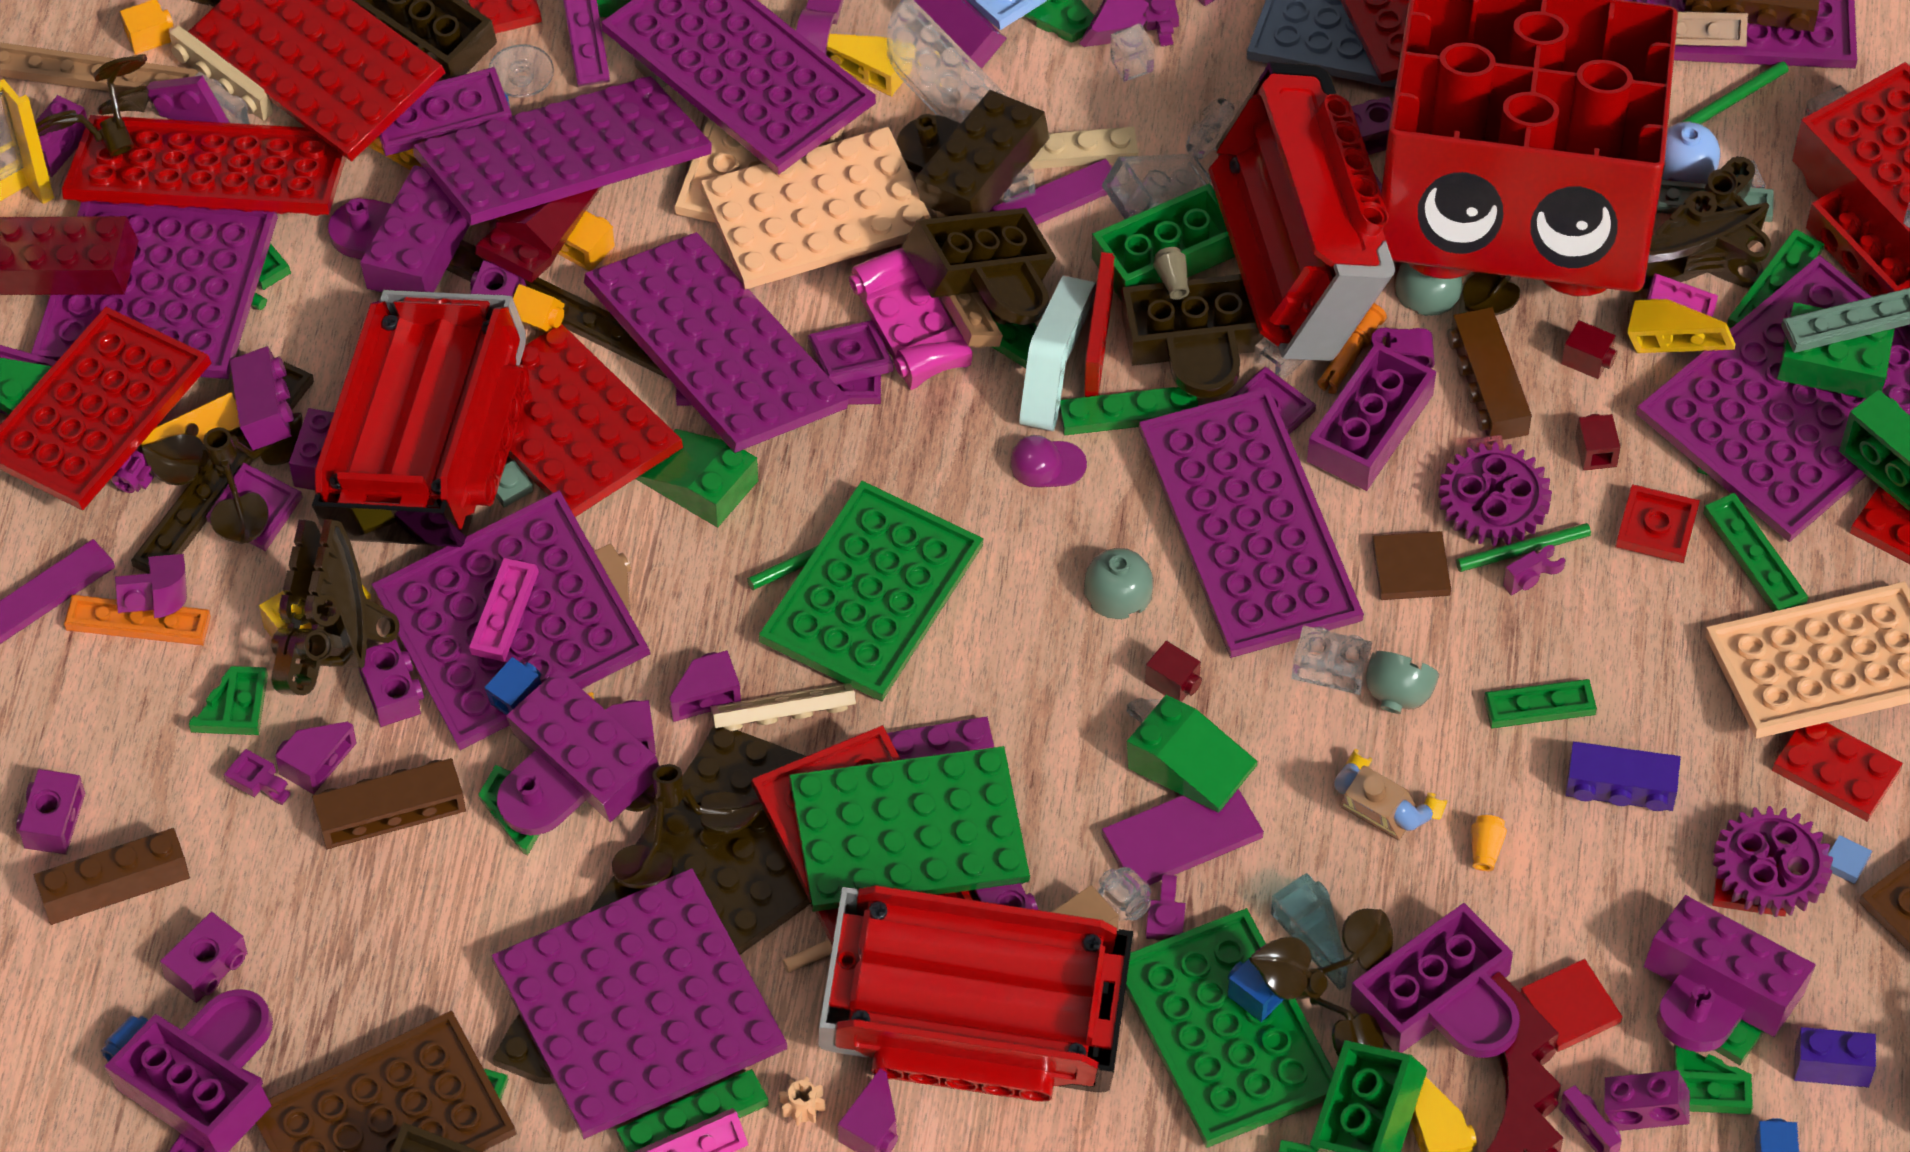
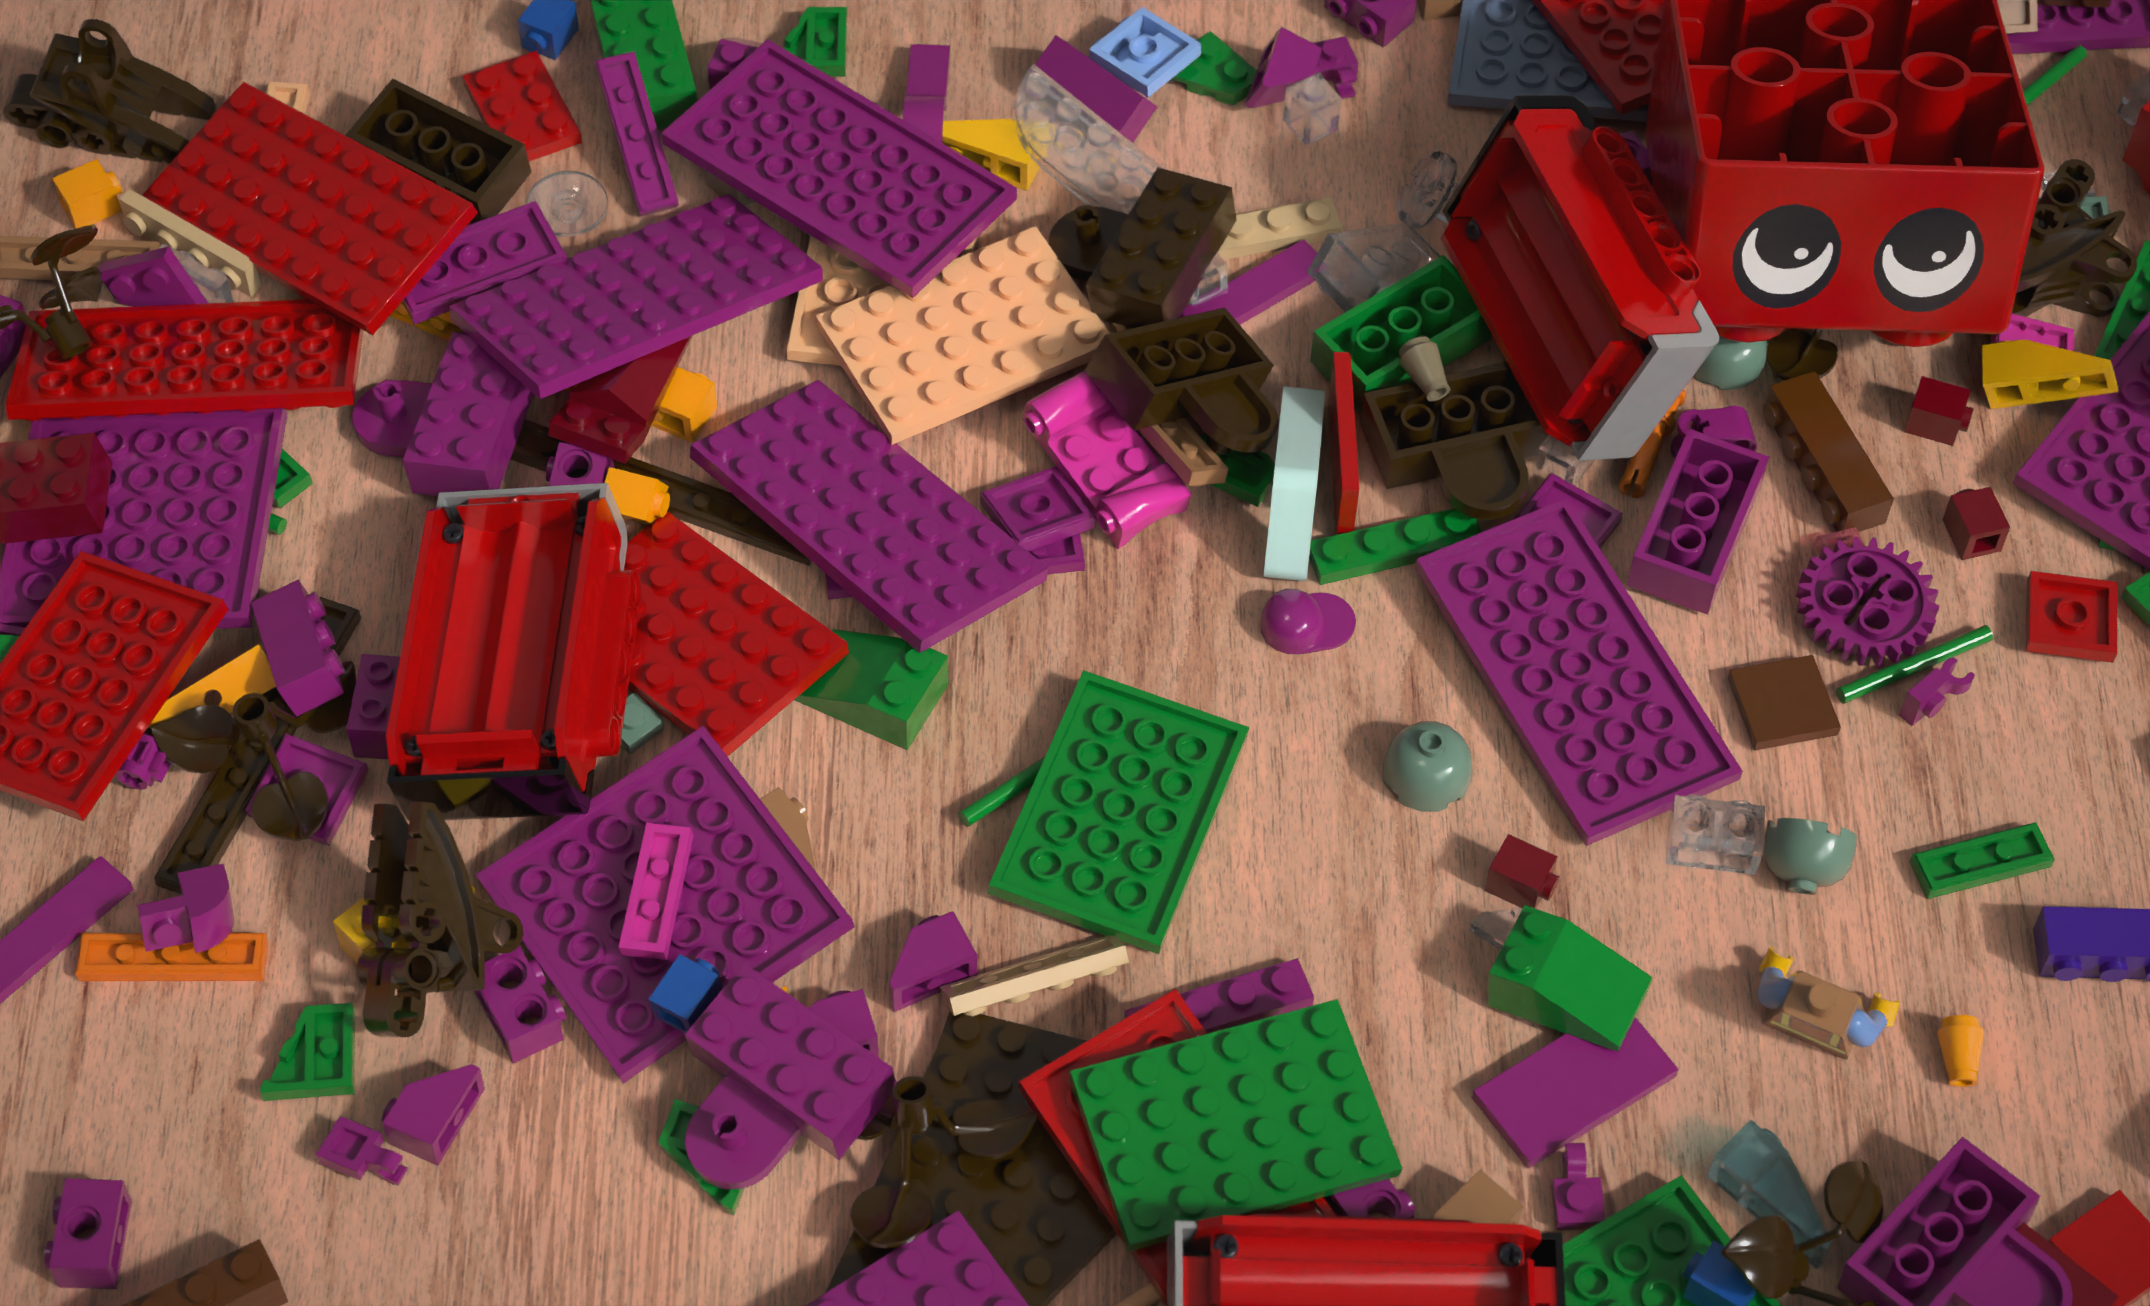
camera: 10 degrees left, 0 degrees up
(389, 803) = (541, 1167): reddish brown brick -> none
(1125, 893) = (1523, 1173): clear head -> none

